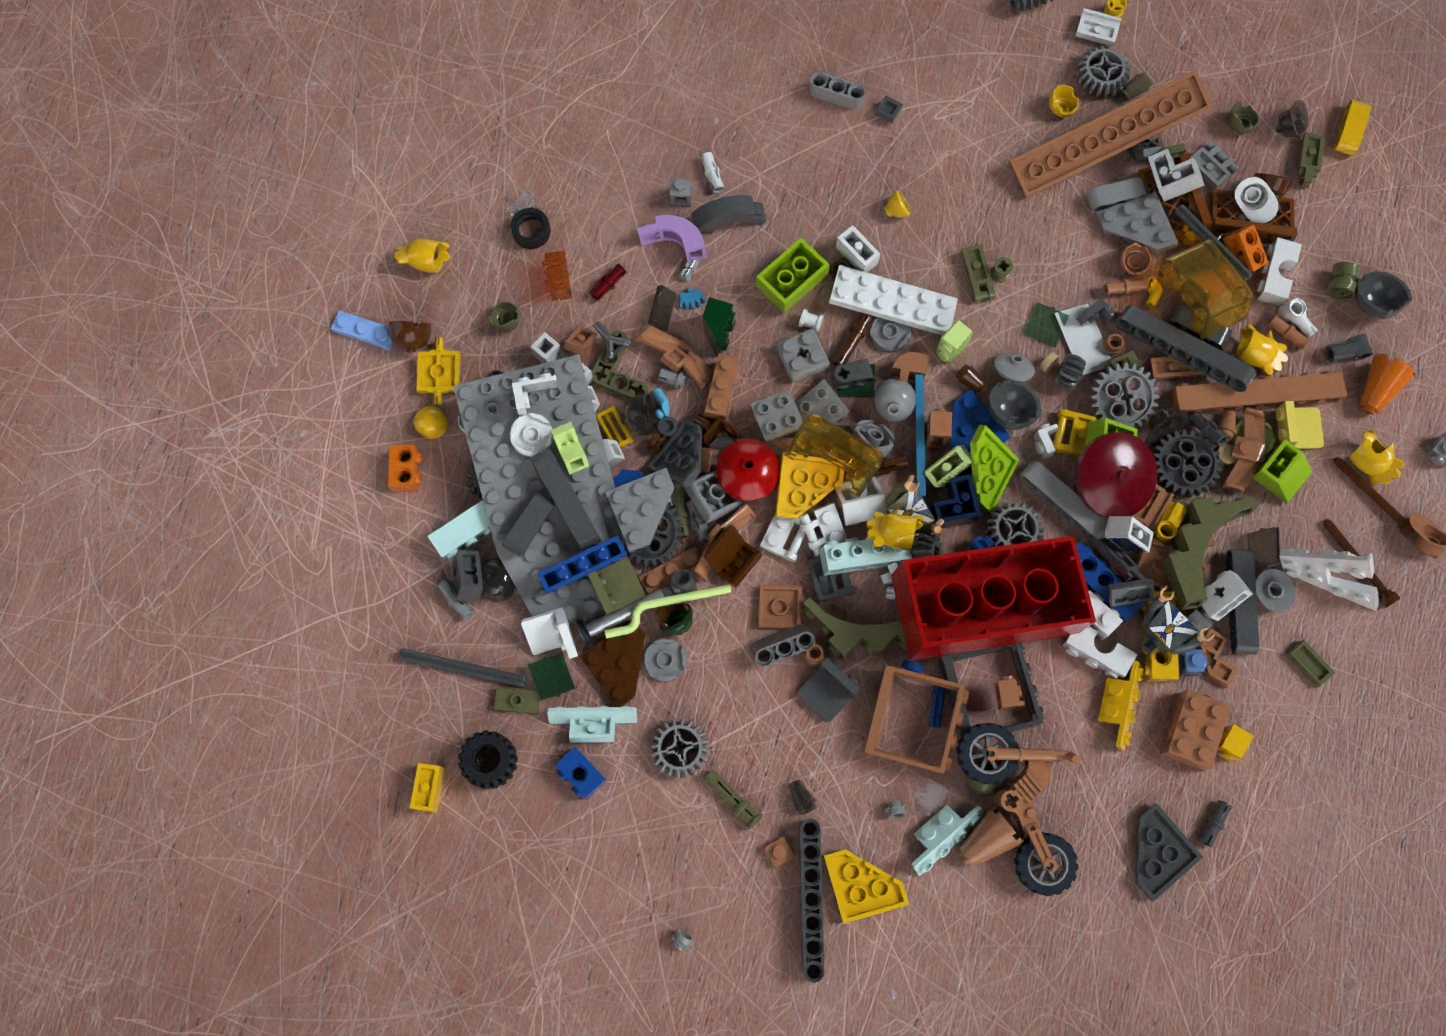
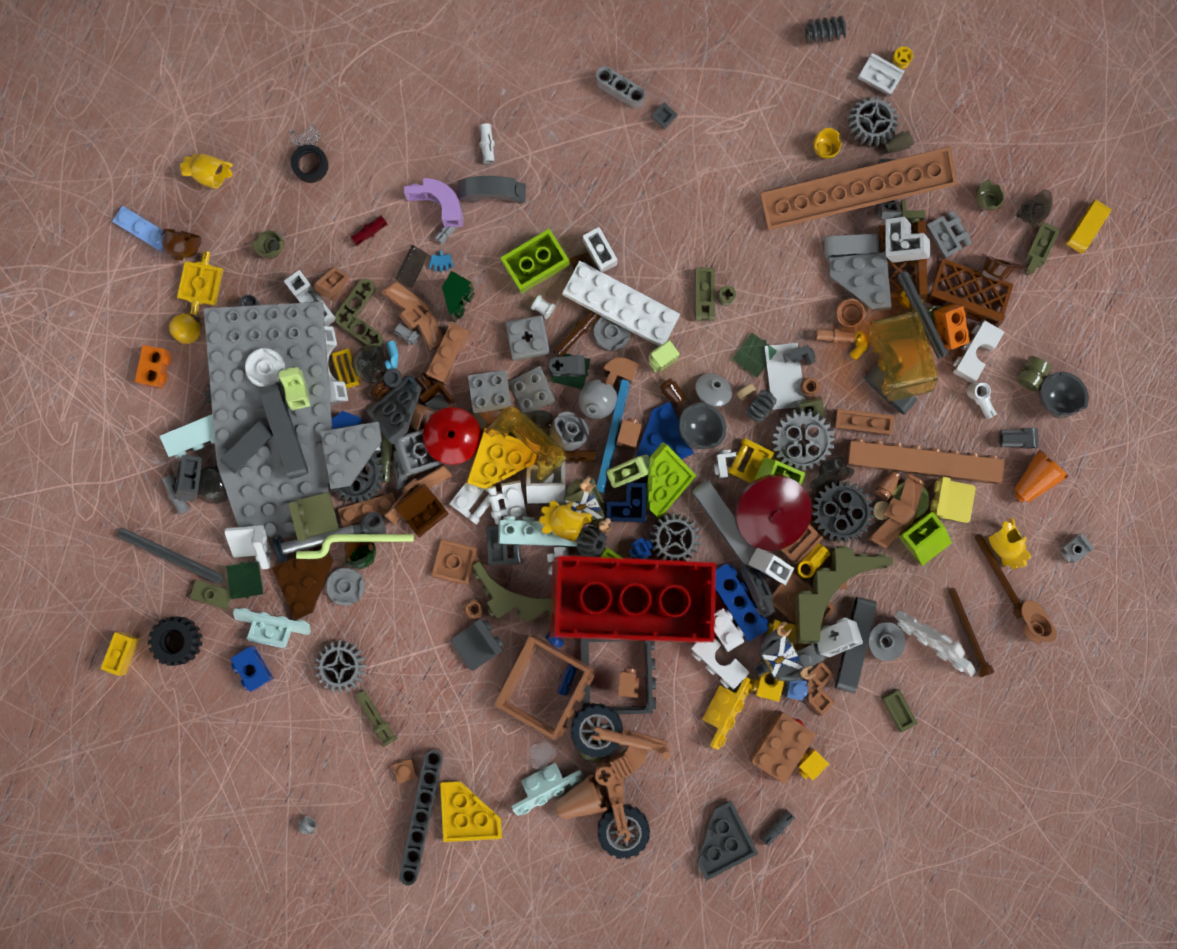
camera: 10 degrees right, 10 degrees up
(524, 386) = (260, 337): white bracket -> none
(558, 275) = (324, 216): clear orange brick -> none
(582, 564) = (286, 492): blue brick -> none
(610, 340) = (358, 288): flat silver piece -> none
(680, 188) = (453, 158): light grey brick -> none
(793, 646) = (438, 597): dark grey beam -> none
(802, 798) = (434, 731): clear smoke cone -> none
(895, 810) = (510, 757): light grey plate -> none
(897, 205) = (648, 213): yellow brick -> none
(1130, 592) = (757, 619): dark grey plate -> none
(1185, 348) = (870, 407): dark grey beam -> none
(1209, 429) = (870, 485): dark grey pin -> none
(1256, 200) = (975, 281): white piece -> none
(1261, 350) = (938, 424): yellow piece -> none
(1265, 547) = (887, 603): clear smoke piece -> none
(1288, 332) = (969, 410): nougat pin -> none

